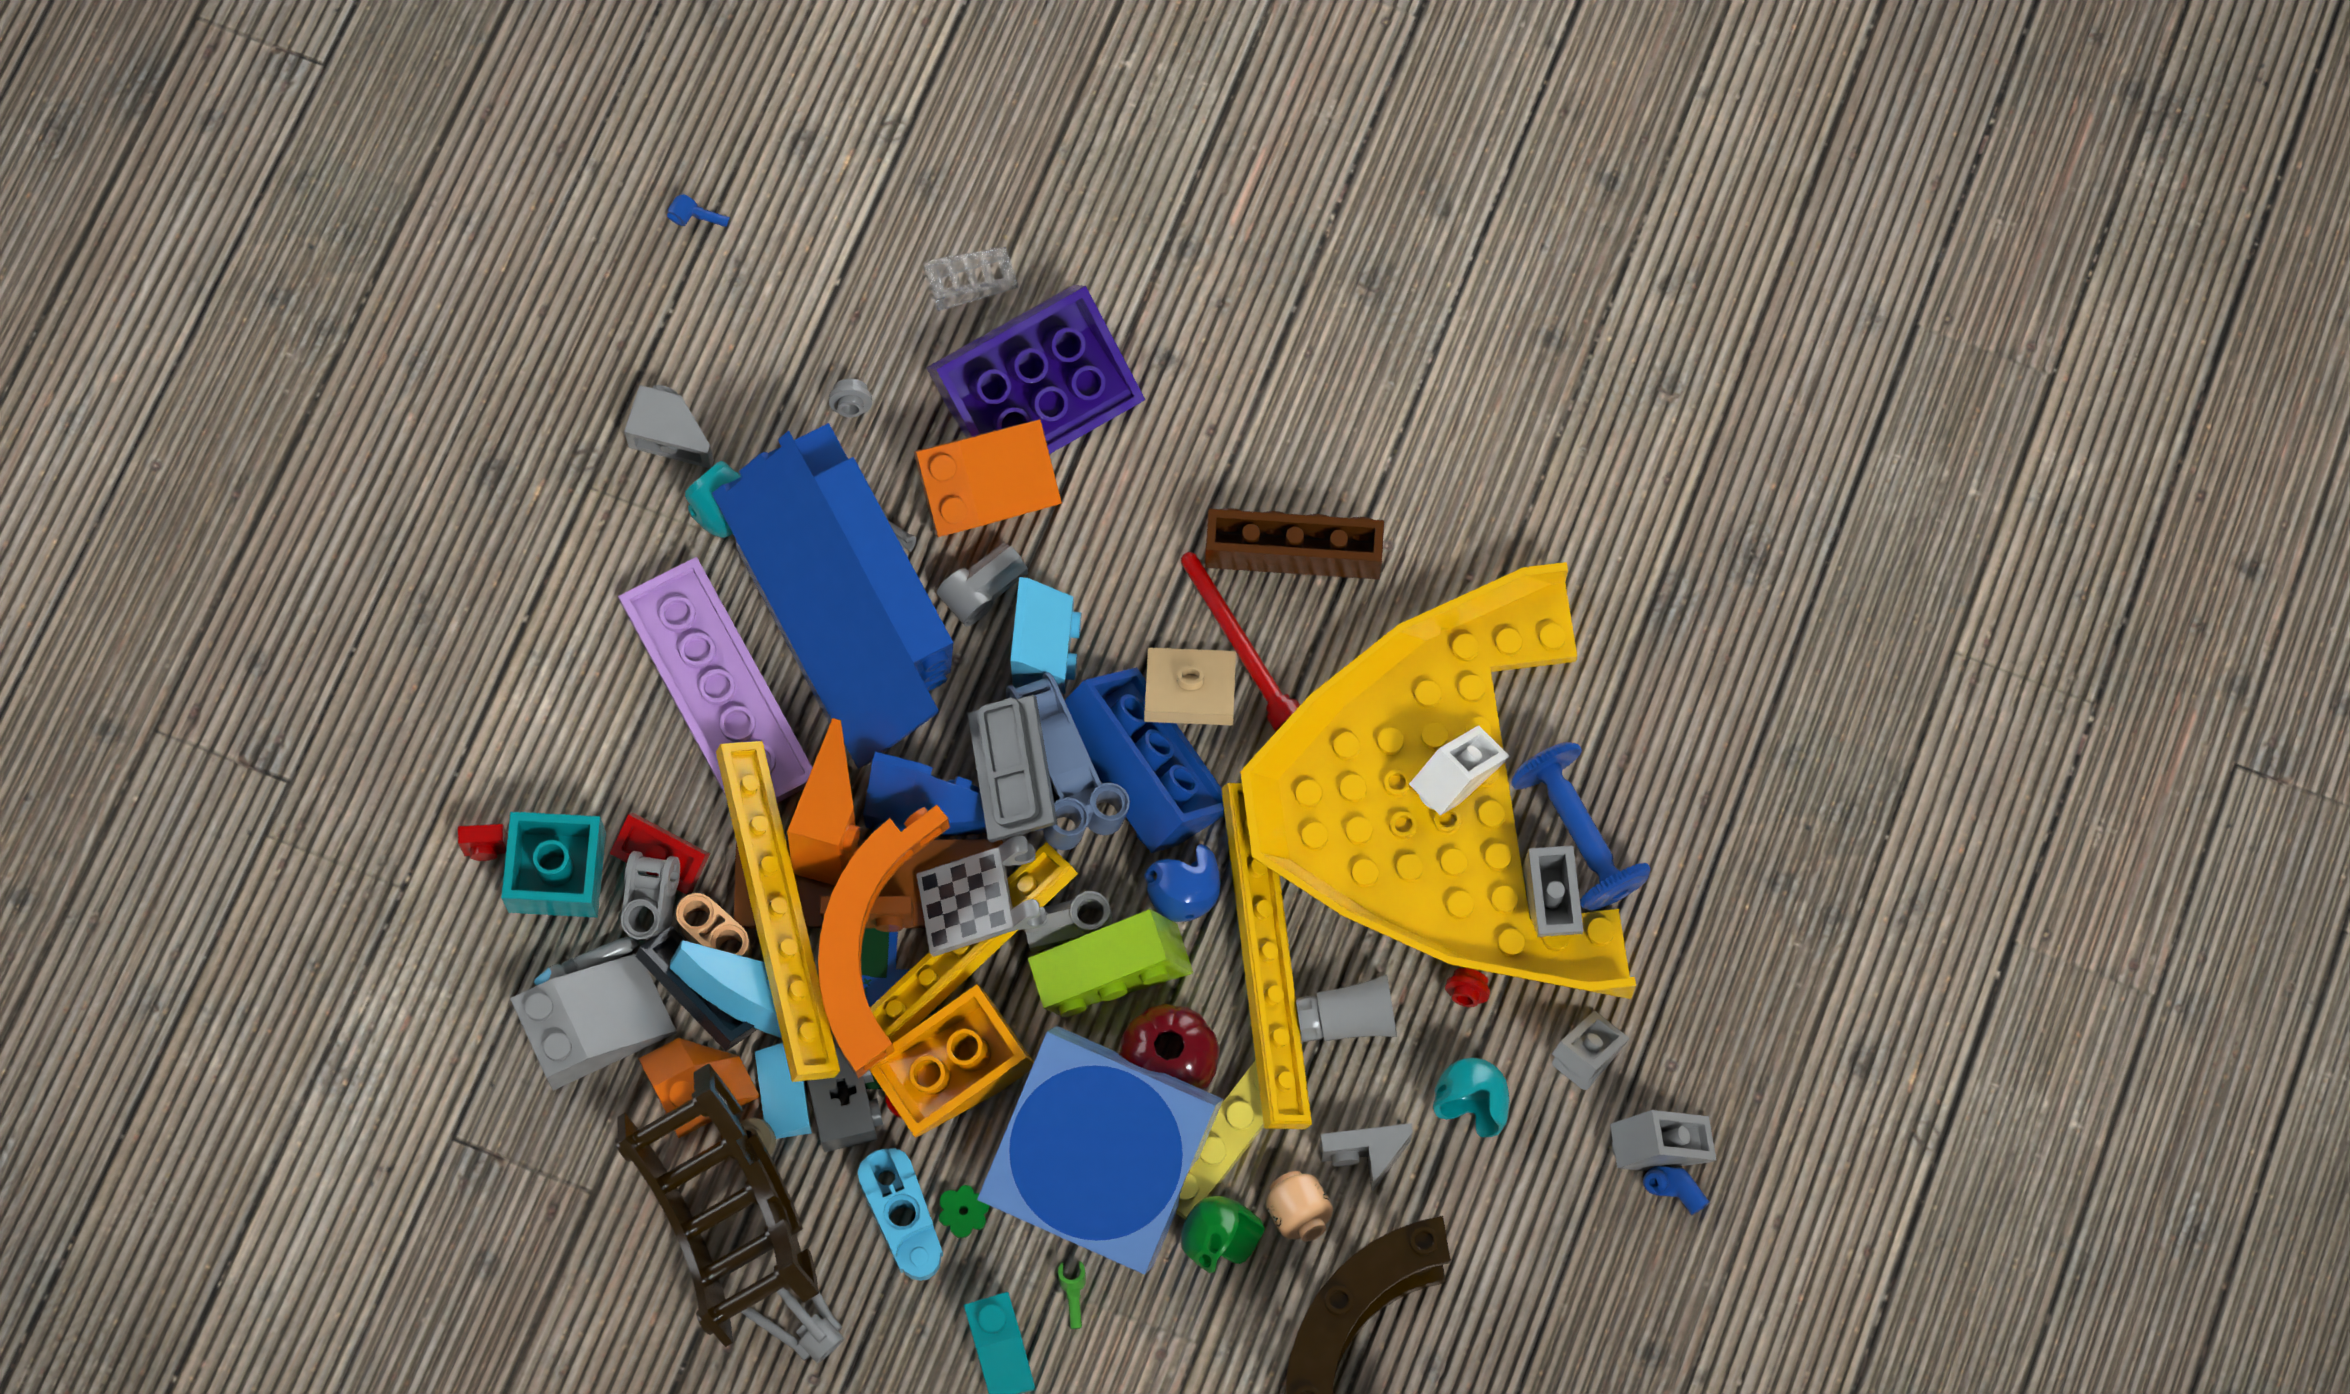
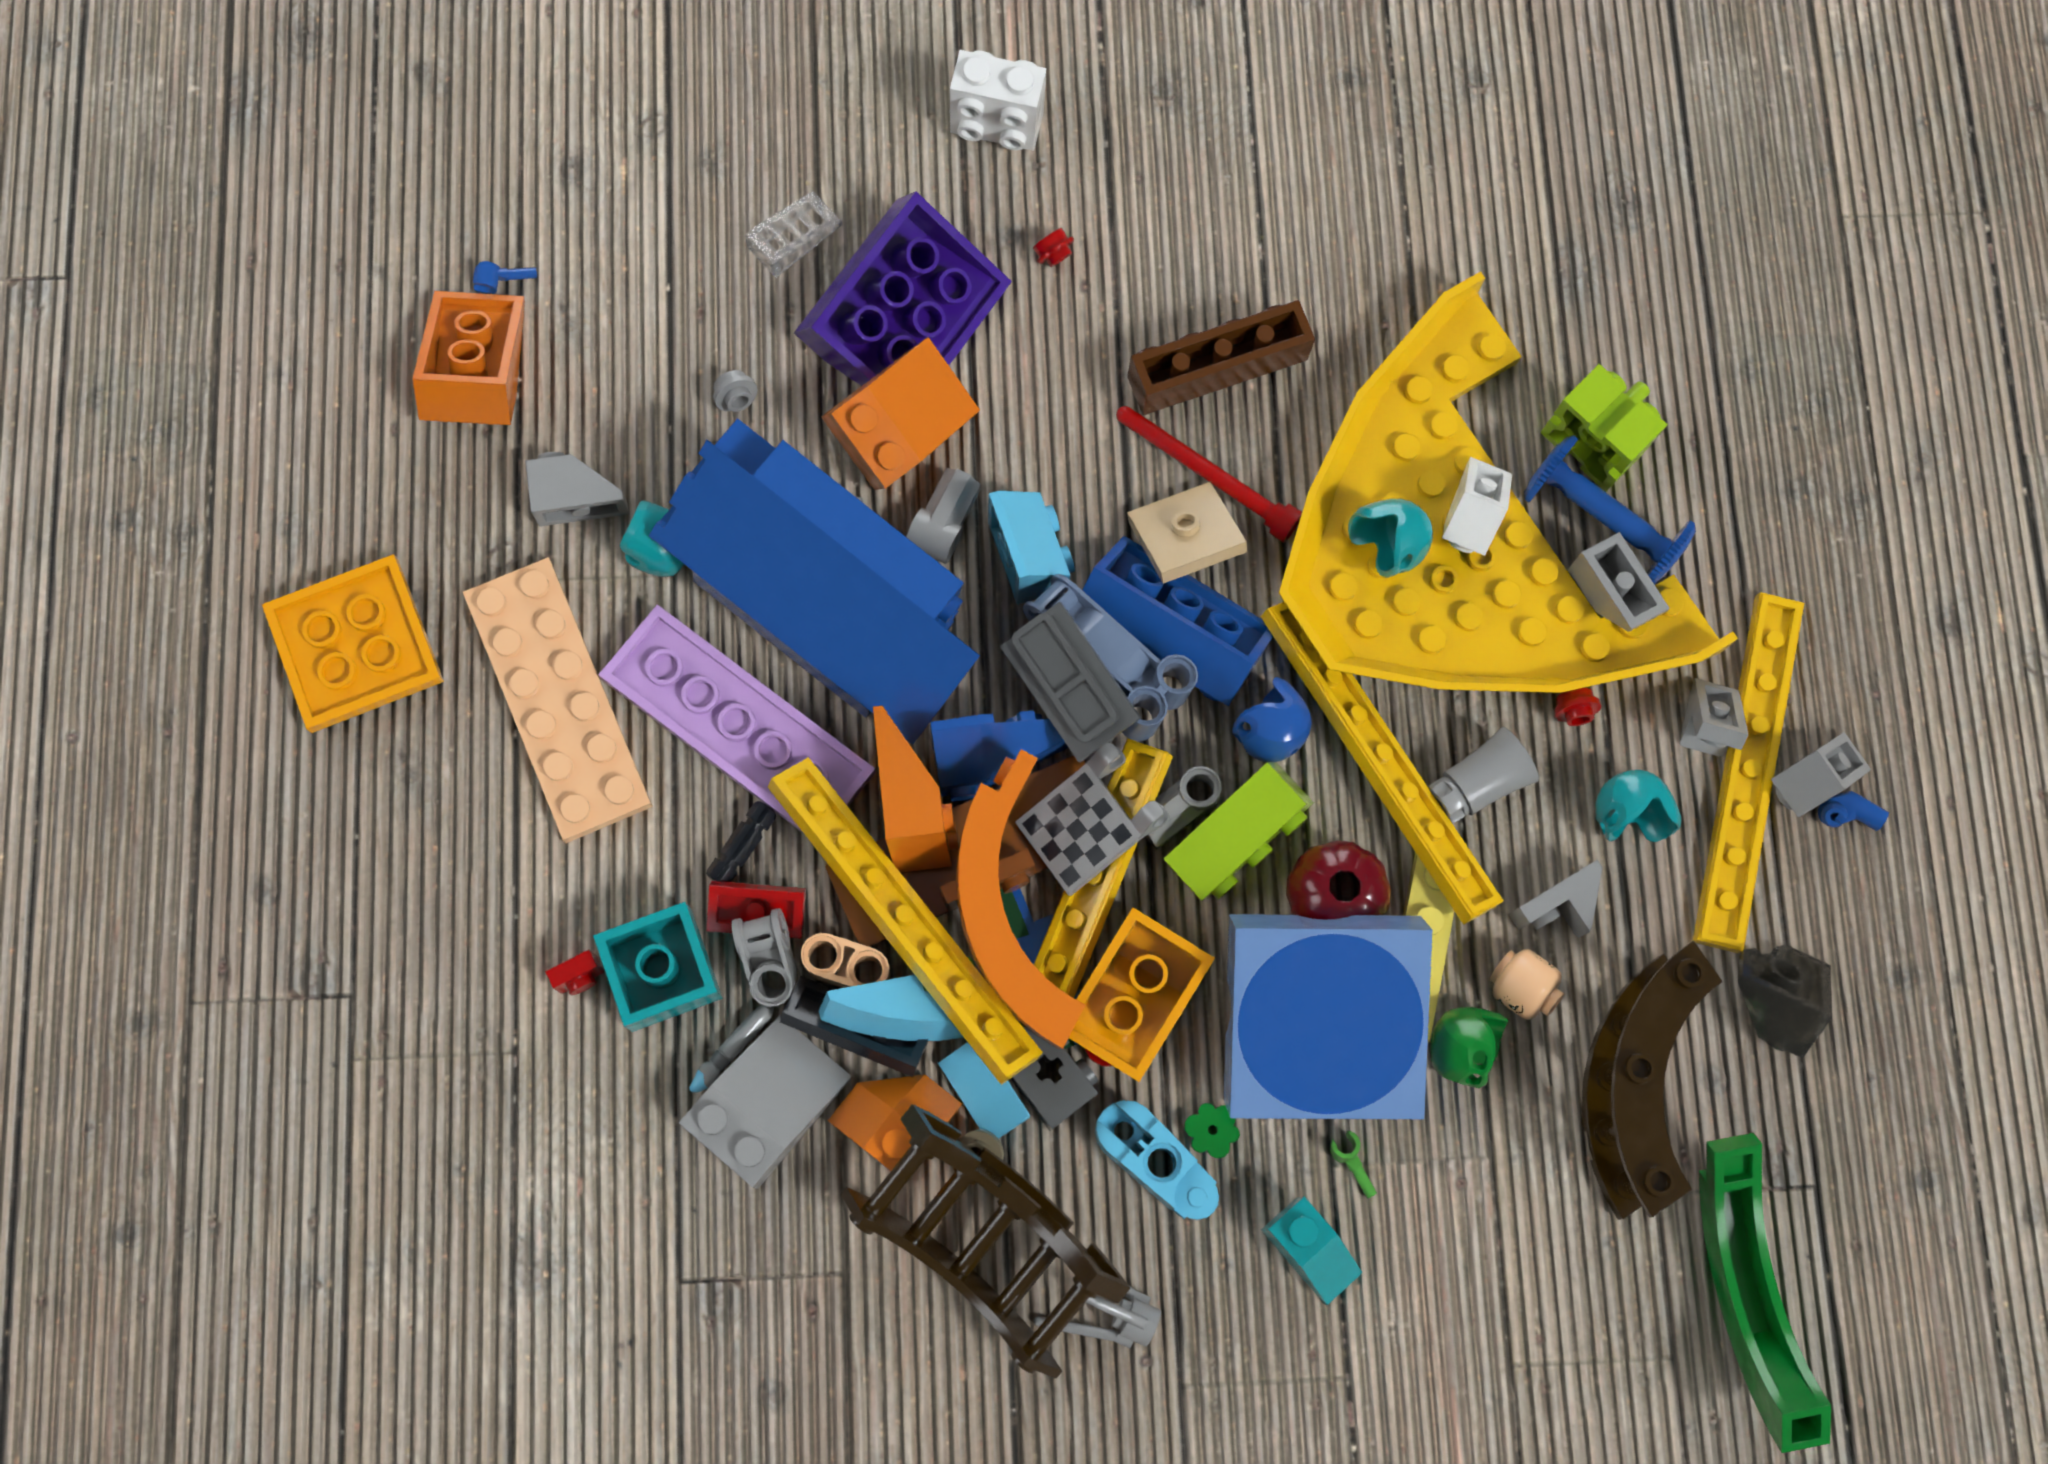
camera: 30 degrees left, 5 degrees up
(423, 482) = (352, 643): none -> light orange plate
(574, 604) = (557, 700): none -> light nougat plate
(635, 275) = (469, 358): none -> orange slope
(675, 792) = (741, 843): none -> black axle
(1196, 385) = (1054, 248): none -> red plate
(1203, 232) = (997, 100): none -> white brick
(1374, 761) = (1398, 530): none -> teal helmet
(1523, 1314) = (1786, 996): none -> clear smoke slope
(1607, 1101) = (1748, 775): none -> yellow tile
(1614, 751) = (1609, 425): none -> lime brick

